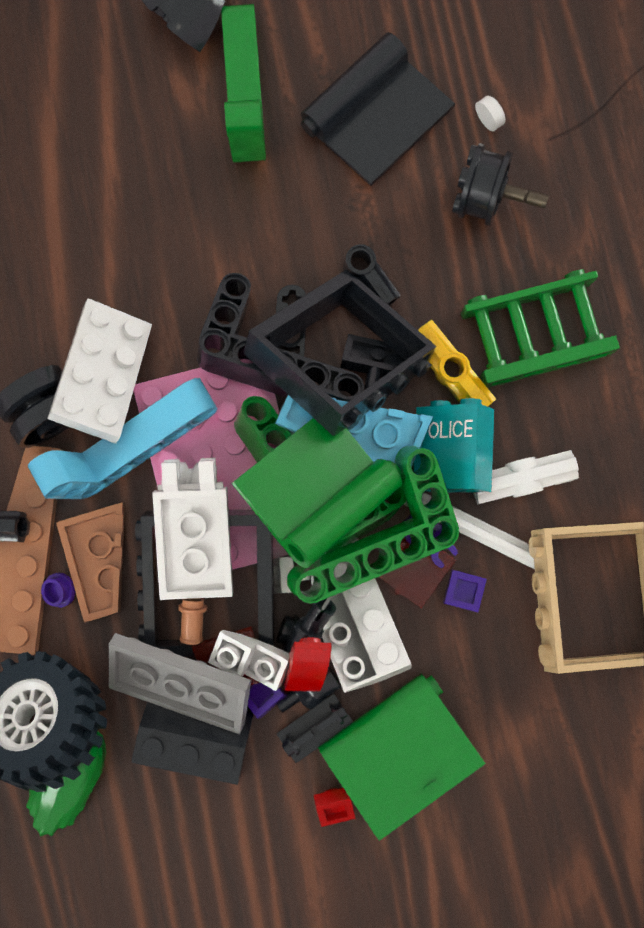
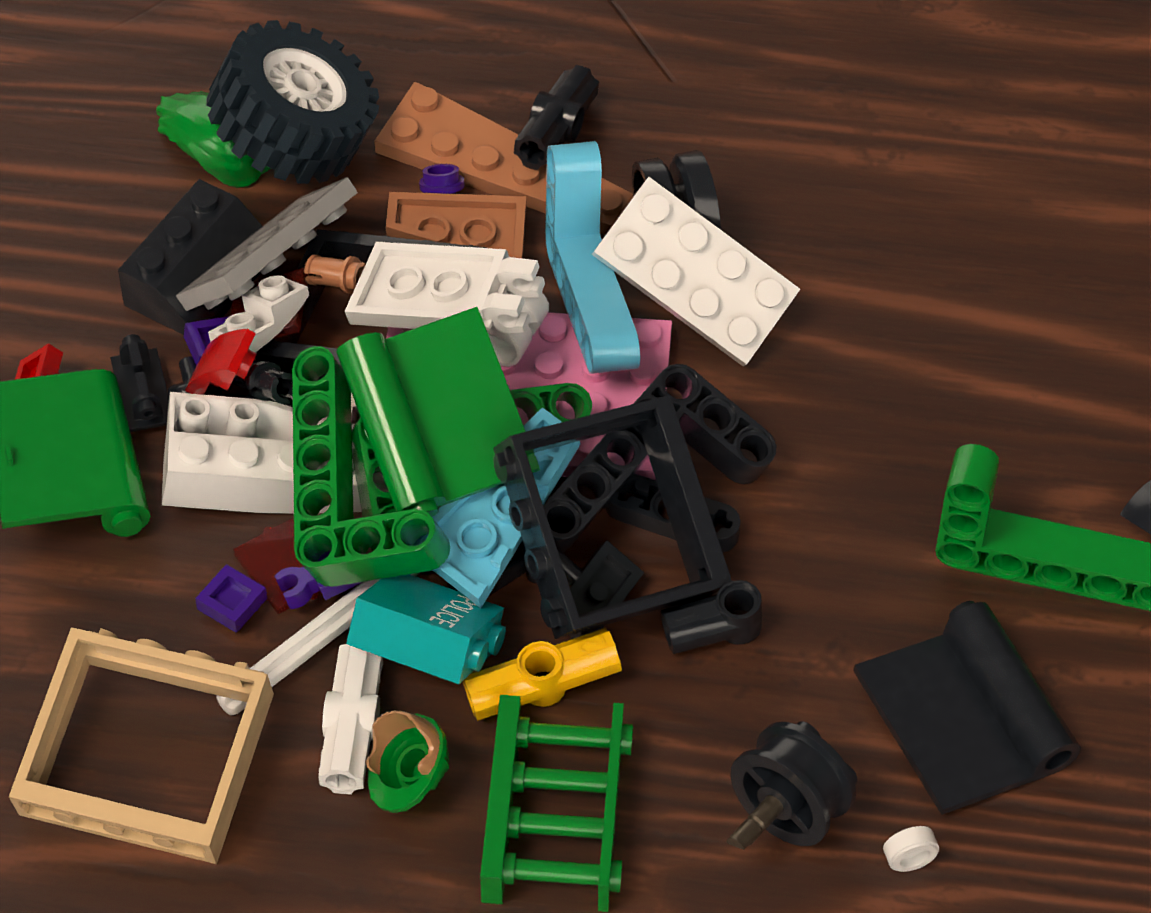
camera: 110 degrees right, 30 degrees down
(552, 425) = (405, 760): none -> green piece

